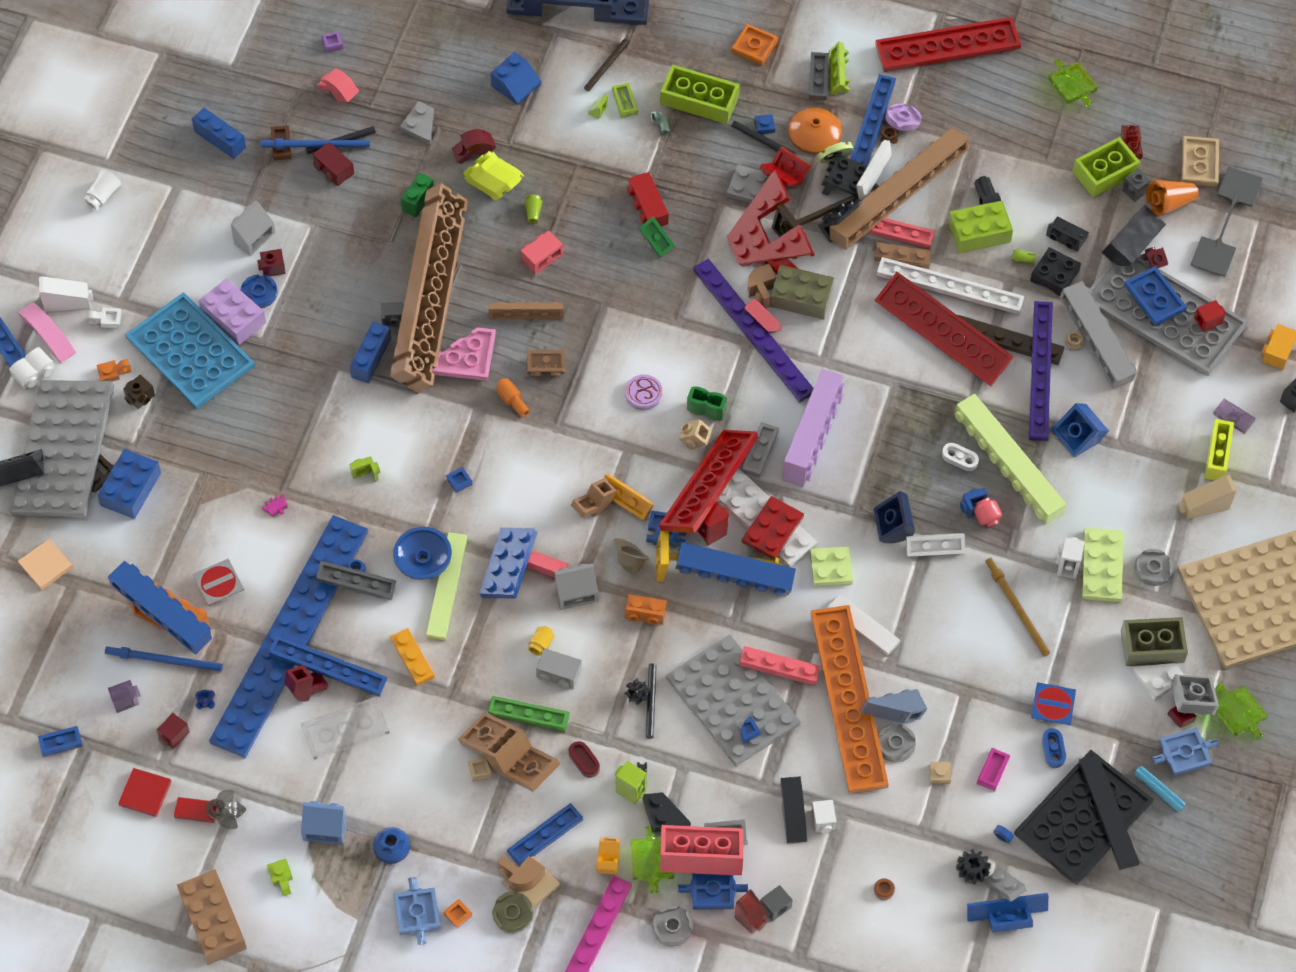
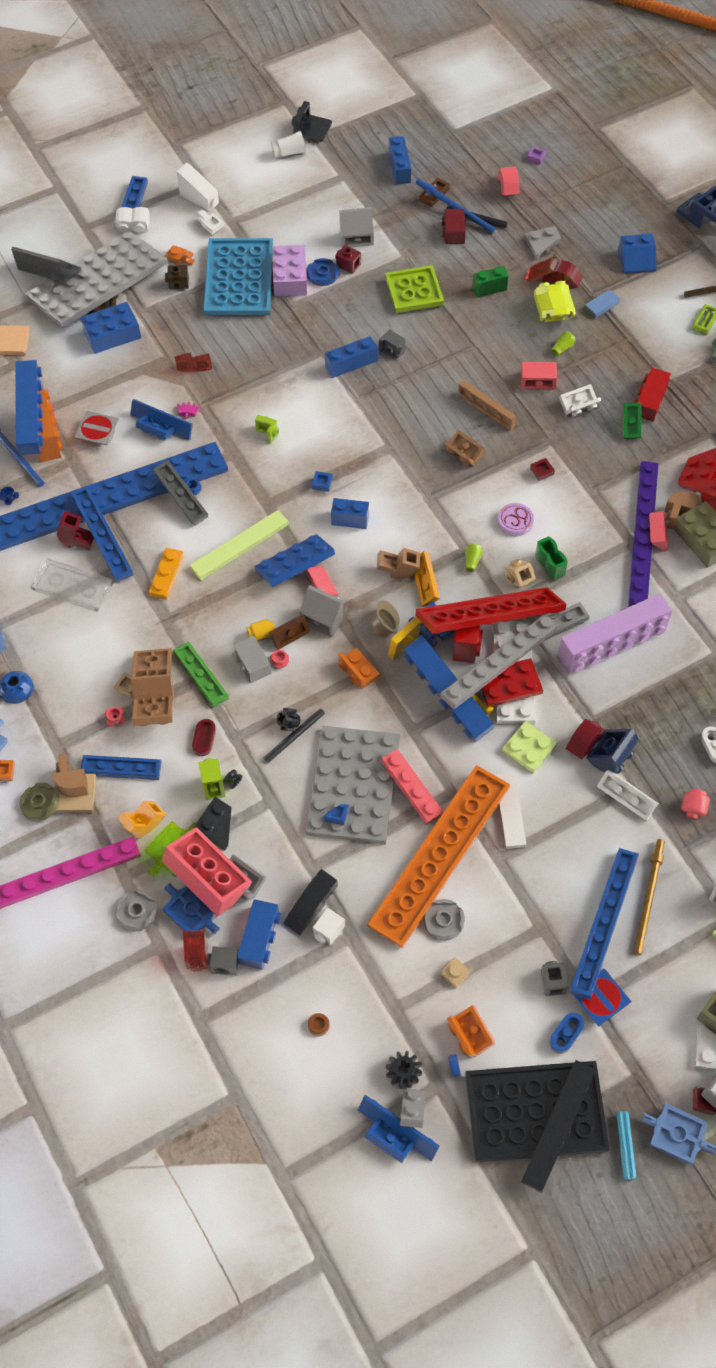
camera: 45 degrees right, 0 degrees up
(48, 331) = (165, 207): bright pink slope -> none
(98, 154) = (311, 126): none -> black bracket
(234, 463) = (187, 363): none -> clear red slope
(266, 535) = (159, 422): none -> blue bracket
(358, 249) = (414, 289): none -> lime plate
(419, 544) = (242, 501): blue dish -> none
(429, 288) = (431, 342): medium nougat brick -> none
(451, 151) = (541, 269): none -> clear red tile
(468, 356) = (415, 407): bright pink plate -> none
(498, 795) = (114, 711): none -> coral plate
(512, 396) = (416, 453): orange arm -> none
(512, 489) = (350, 513): none -> blue brick
(528, 146) = (602, 303): none -> medium blue tile
(565, 623) = (289, 632): none -> reddish brown plate
(578, 650) = (279, 659): none -> coral plate
(596, 250) = (578, 400): none -> white bracket
(599, 107) = (681, 311): lime slope -> none
(624, 333) = (542, 469): none -> dark red plate
(643, 449) = (472, 557): none -> lime cone
(754, 516) = (498, 661): none -> light grey plate
(780, 862) = (259, 934): none -> blue brick
(867, 526) = (584, 738): none -> dark red brick
(897, 707) = (470, 893): sand blue slope -> none
(970, 499) = (692, 782): blue bracket -> none
(992, 801) = (471, 1032): none -> orange bracket
(993, 769) = (501, 1007): dark pink tile -> none
(1008, 650) = (604, 924): none -> blue plate
(1011, 711) = (556, 970): none -> dark grey brick

